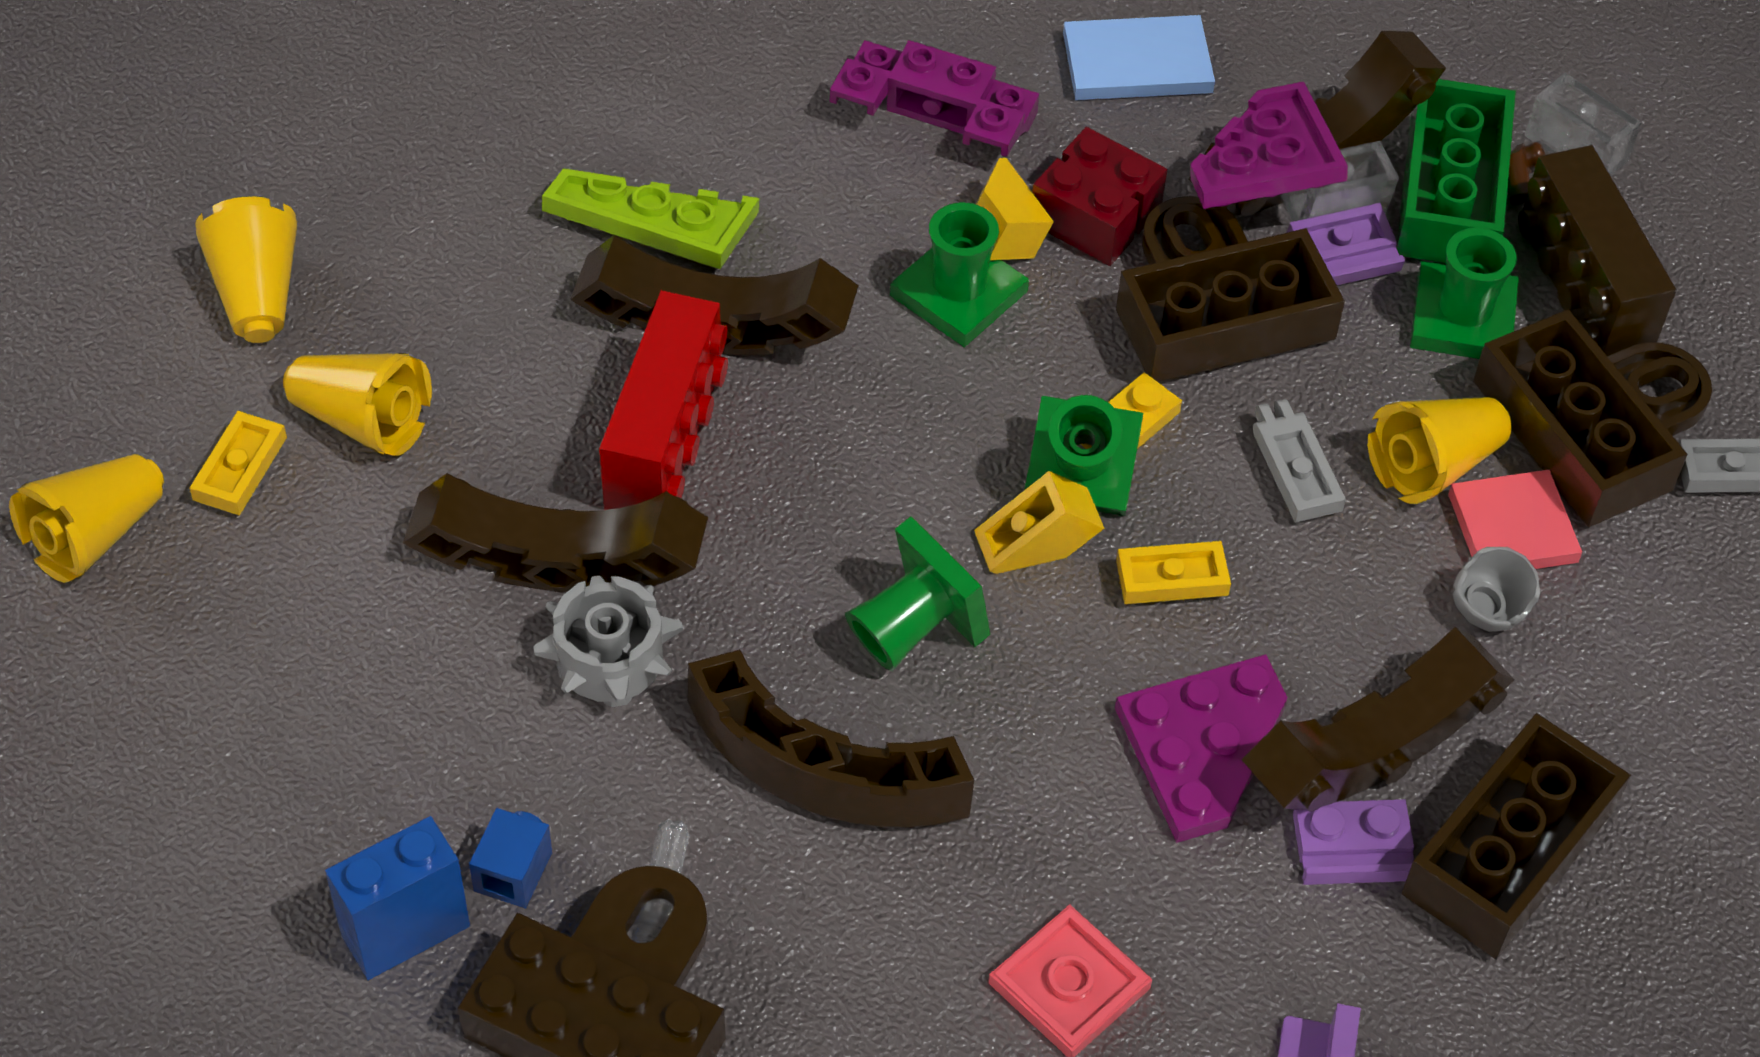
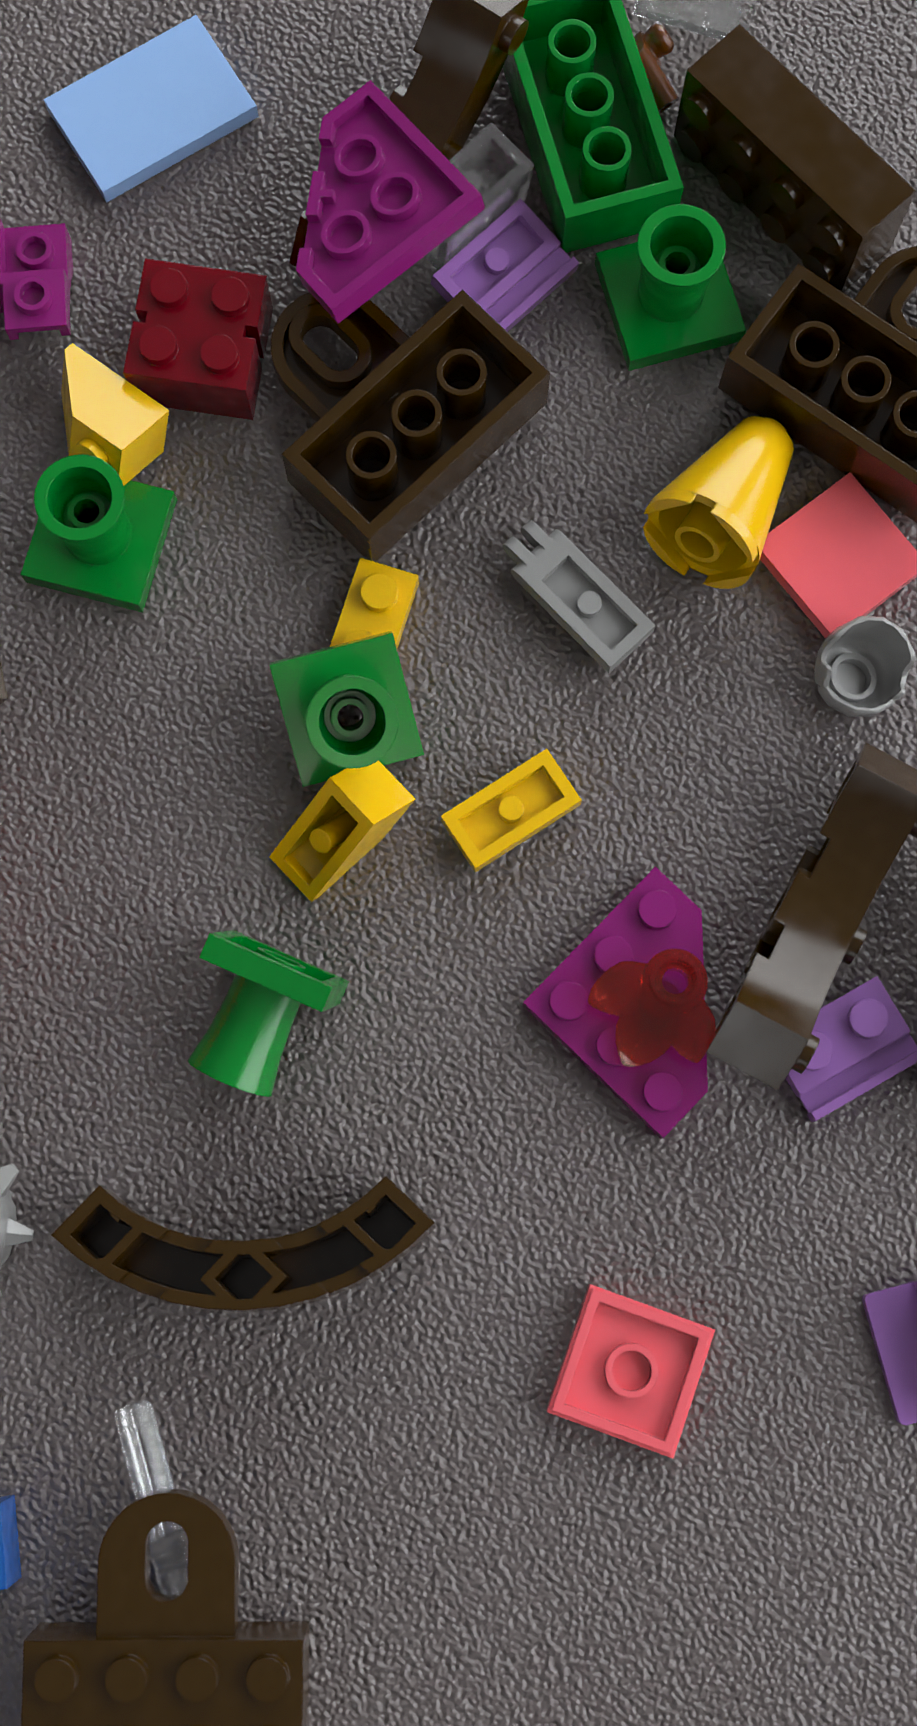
camera: 25 degrees left, 25 degrees up
(1212, 735) = (652, 1016): none -> clear red plate

